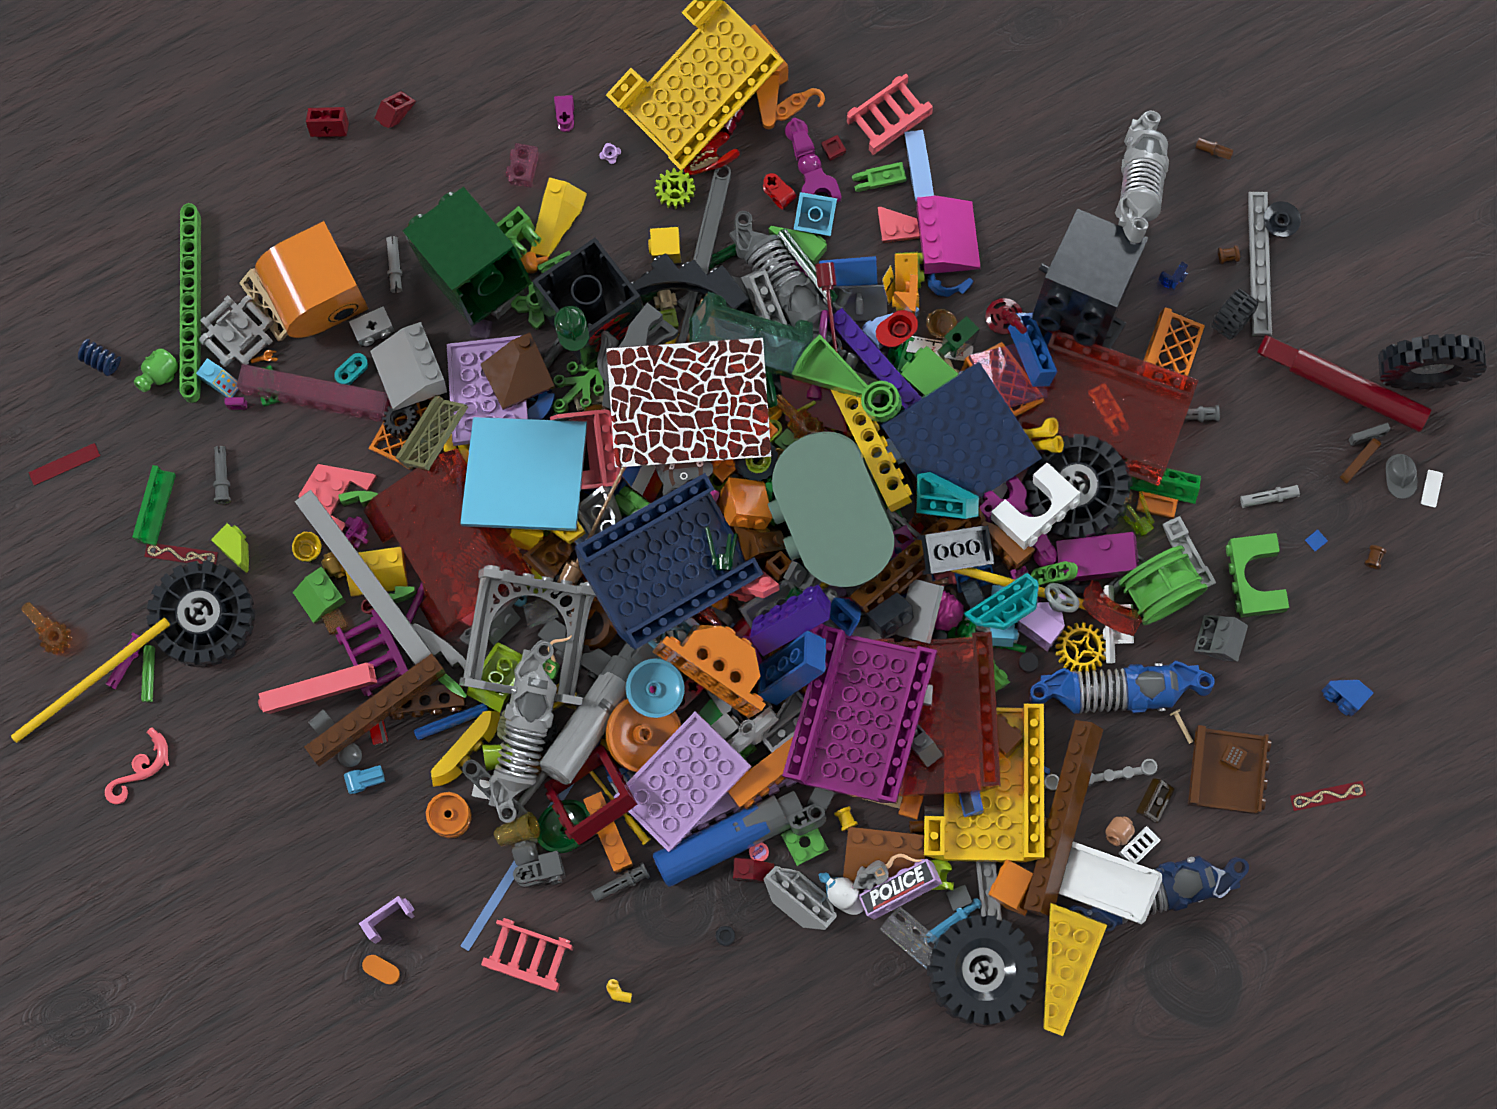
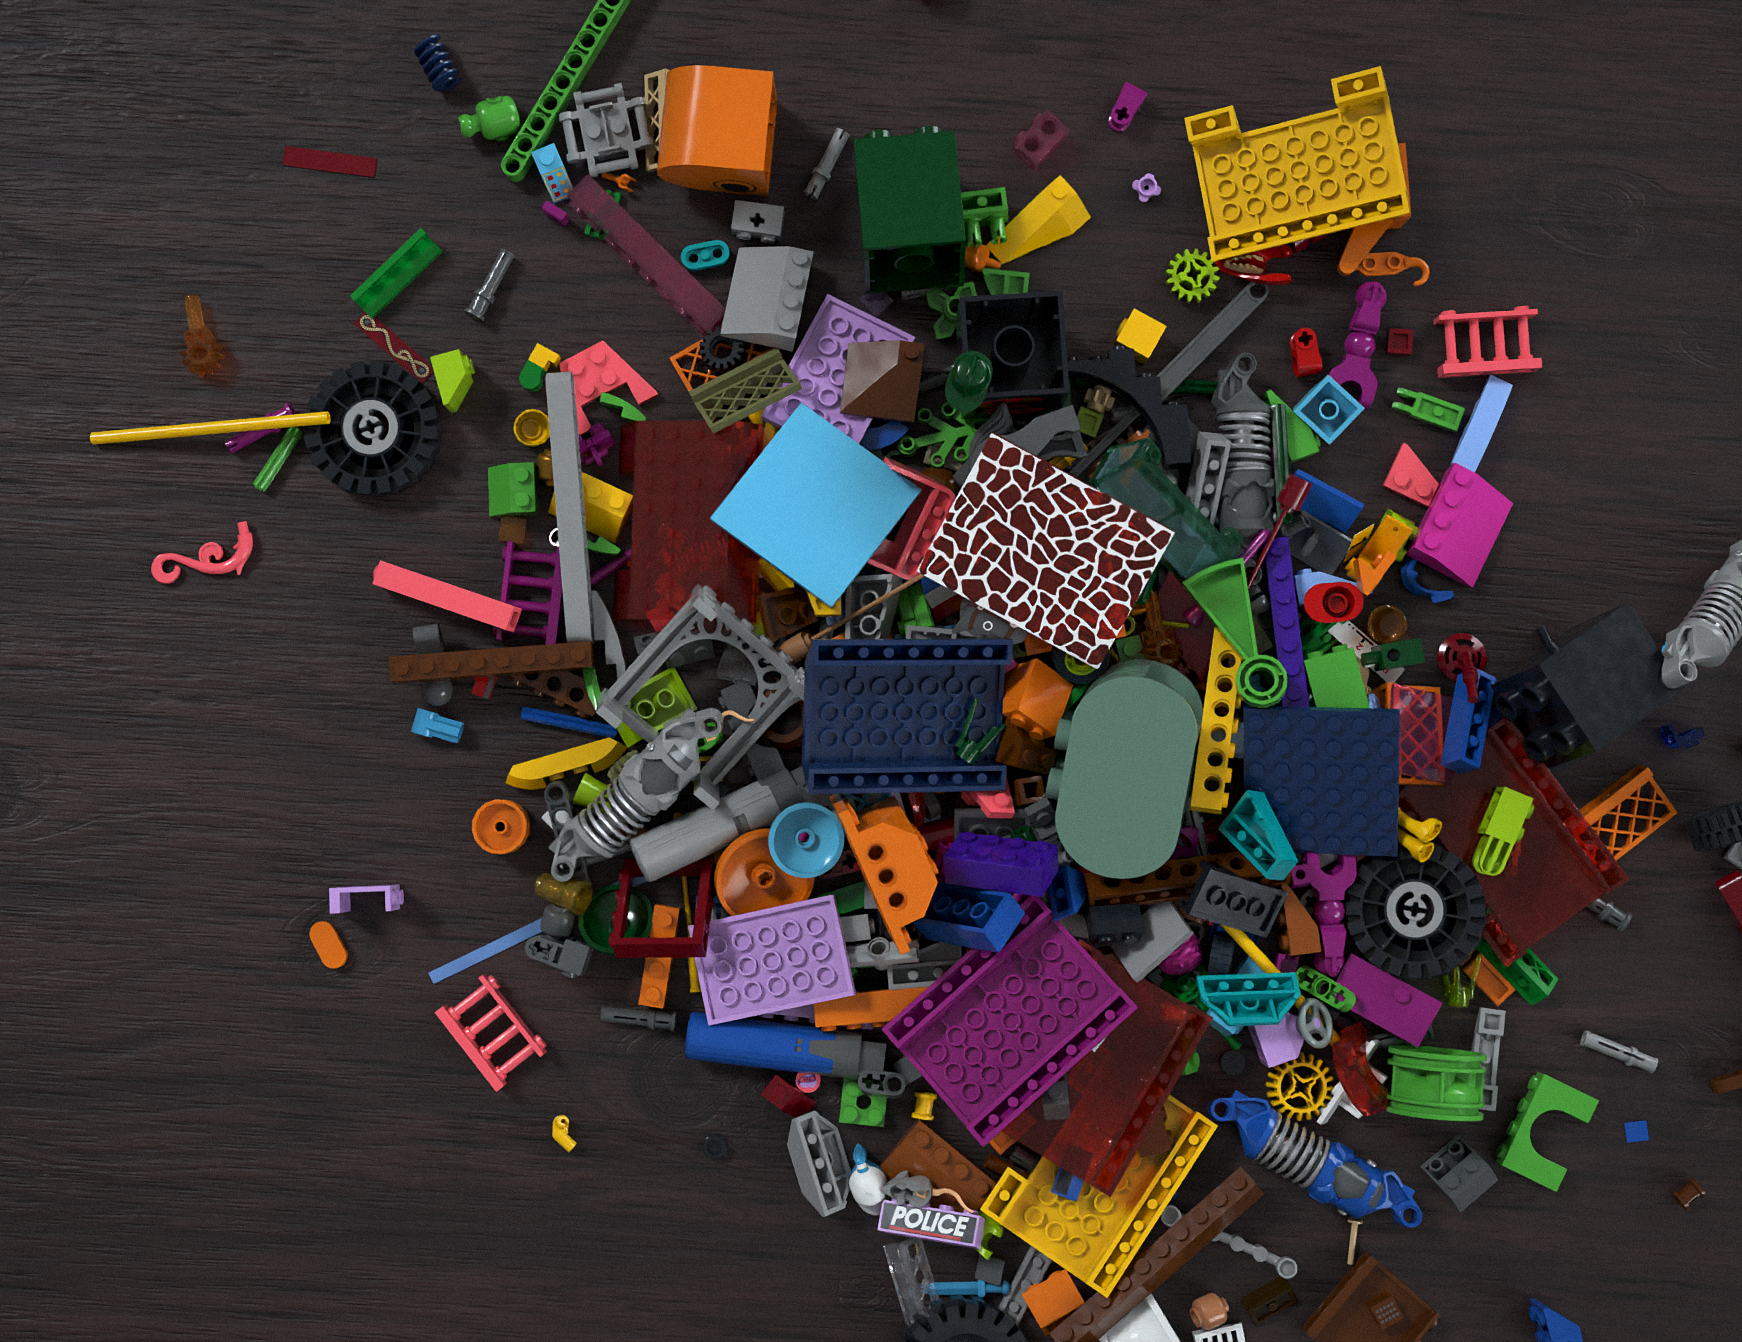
camera: 25 degrees right, 10 degrees up
(284, 507) = (536, 367): none -> leg
(1026, 529) = (1325, 926): white arch -> none
(1097, 400) = (1501, 829): none -> lime brick

